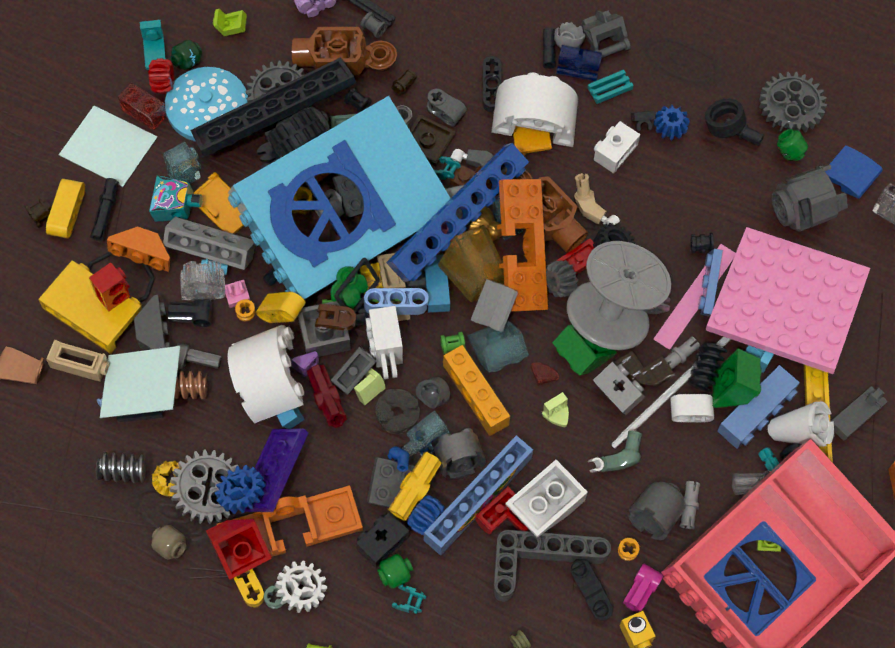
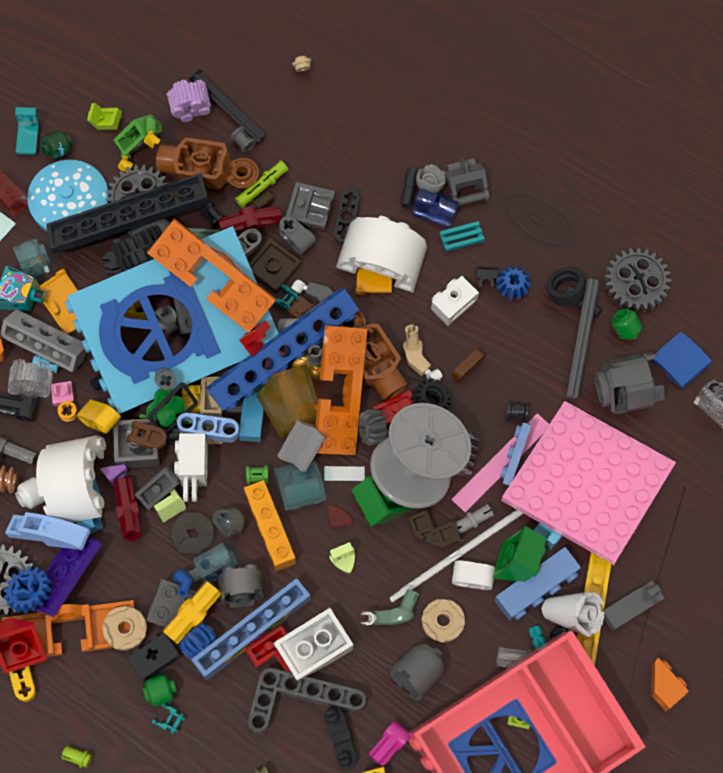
camera: 10 degrees right, 5 degrees up
(161, 75) = (28, 164): red gear -> none
(223, 395) = (28, 494): none -> white head
(249, 426) = (49, 530): none -> light blue slope
(267, 34) = (135, 136): none -> bright green torso
(270, 591) = (47, 702): sand green bush -> none
(310, 591) = (61, 685): white gear -> none
(347, 527) = (133, 637): none -> tan tile
(352, 256) = (161, 384): none -> dark grey bush
(402, 95) = (251, 218): none -> dark red piece
(406, 58) = (268, 178): none -> lime pin
(408, 164) = (239, 298): none -> orange plate
(427, 203) = (252, 340): none -> red bracket
(454, 77) = (311, 205): none -> dark grey plate
(492, 214) = (314, 355): none -> dark grey pin
(540, 329) = (344, 473): none -> white sticker
(625, 399) = (396, 539): light grey brick -> none
(626, 555) = (381, 710): light orange bush -> none
(643, 206) = (468, 365): none -> reddish brown beam
(668, 470) = (443, 633): none -> tan tile
(691, 505) = (451, 670): light grey pin -> none
(705, 366) = (495, 536): black piece -> none
(752, 168) = (582, 339): none -> dark grey axle

